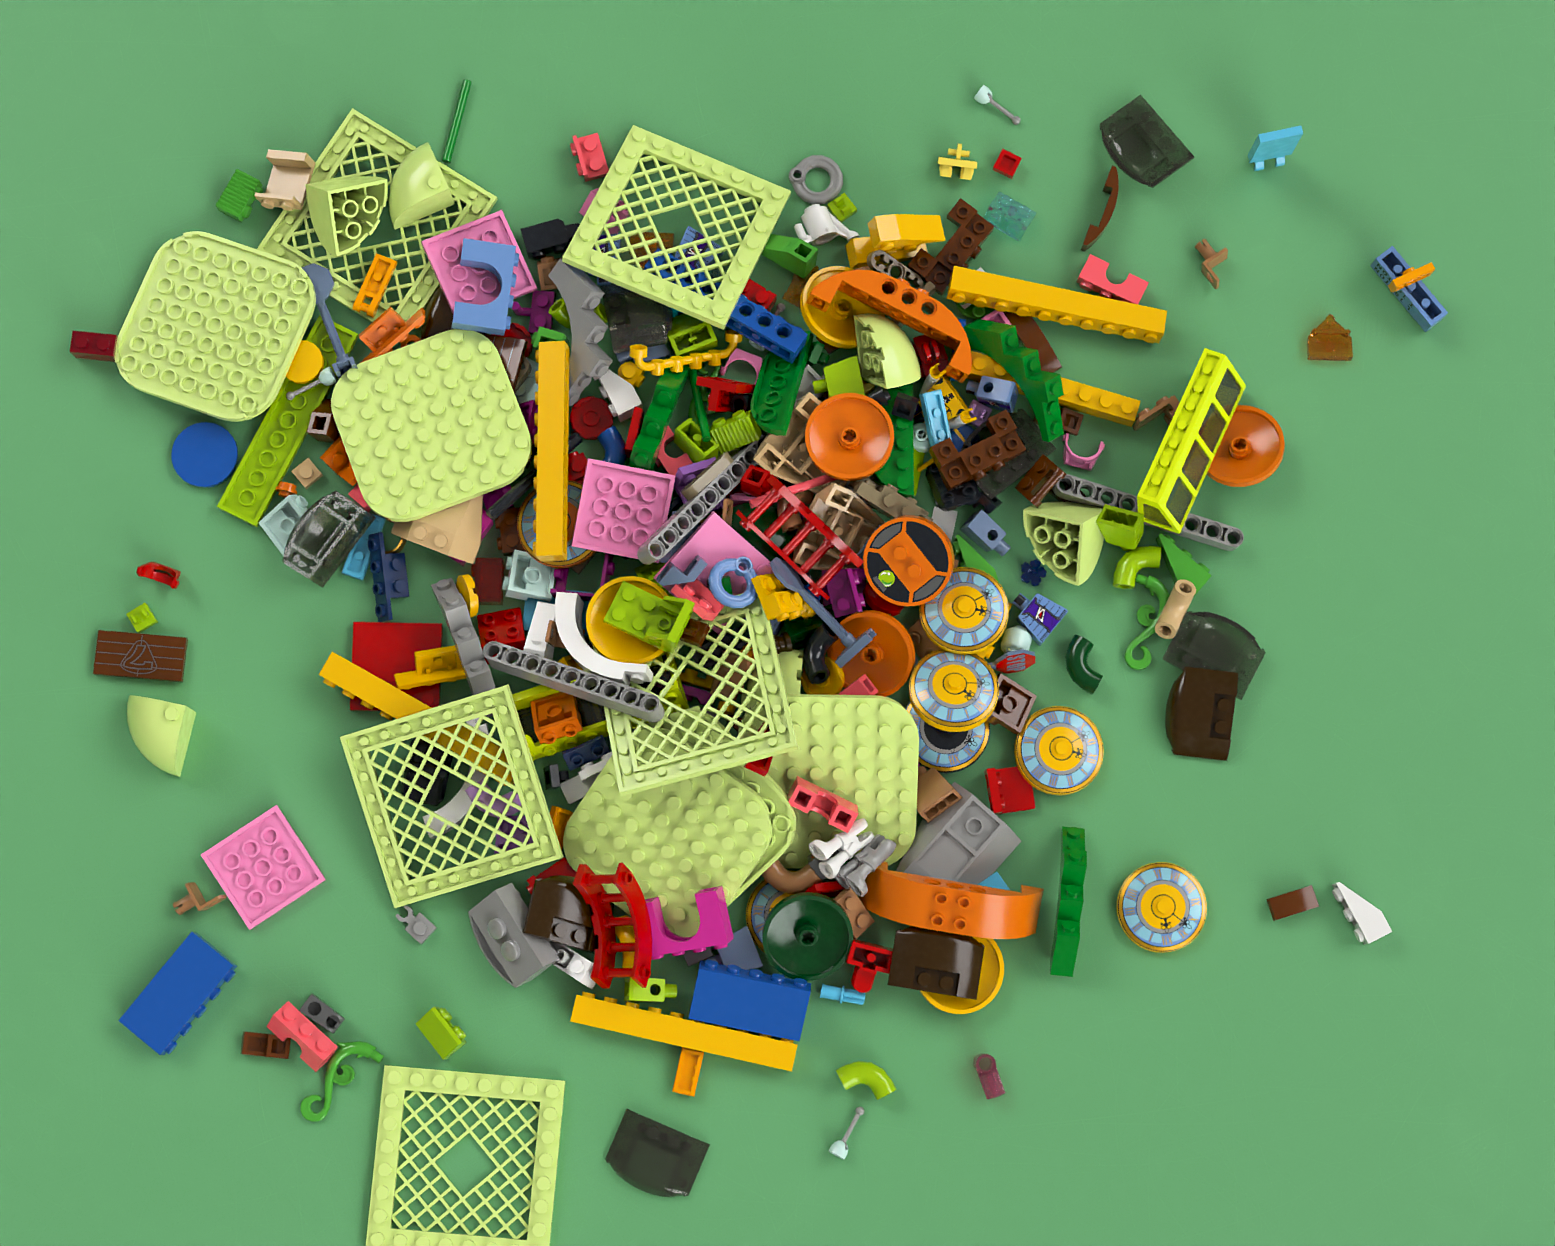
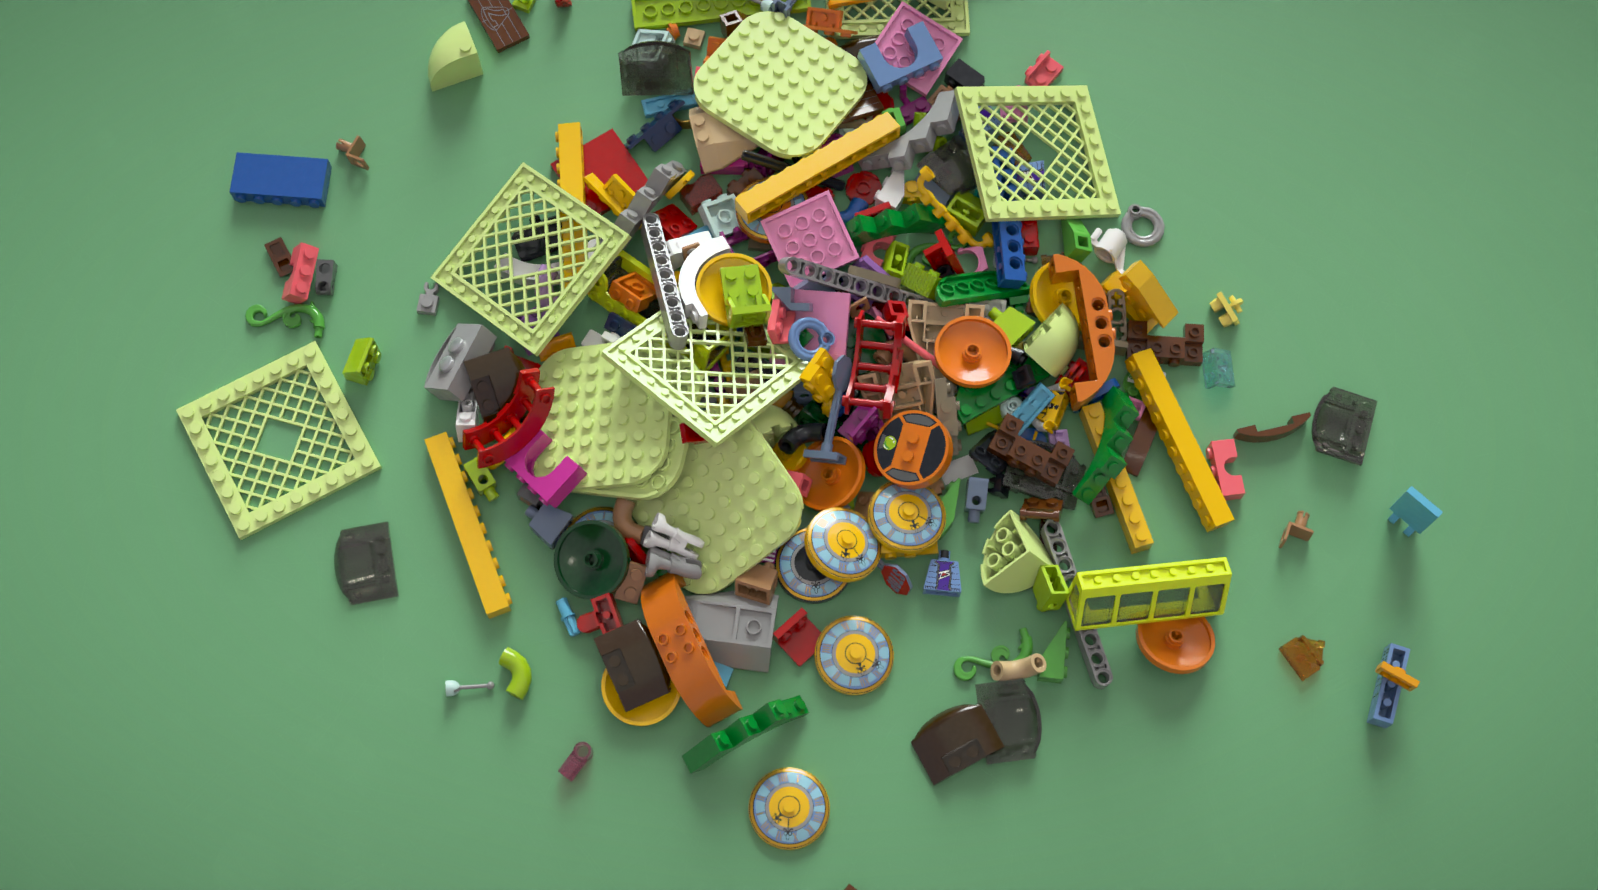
camera: 55 degrees right, 10 degrees down
(263, 867) = (403, 179): bright pink plate -> none
(554, 776) = (593, 322): black tile -> none
(688, 1071) = (440, 545): light orange plate -> none
(699, 405) = (918, 250): green bar -> none
(750, 1000) = (519, 551): blue brick -> none
(834, 808) = (696, 516): coral arch -> none
(842, 207) = (1135, 253): lime tile -> none
(985, 96) = (1290, 297): hinge -> none
(1002, 394) = (1082, 439): medium blue torso -> none
(1007, 163) = (1254, 343): red plate -> none
(1012, 705) = (862, 596): plate -> none
(1016, 639) = (915, 570): light aqua head -> none
(1032, 572) = (972, 553): clear blue plant -> none
(1078, 665) = (926, 628): dark green cylinder -> none
(1080, 462) = (1079, 536): bright pink helmet -> none
(1132, 562) = (1032, 618): lime cylinder -> none
(1164, 405) = (1146, 555): medium nougat bracket -> none

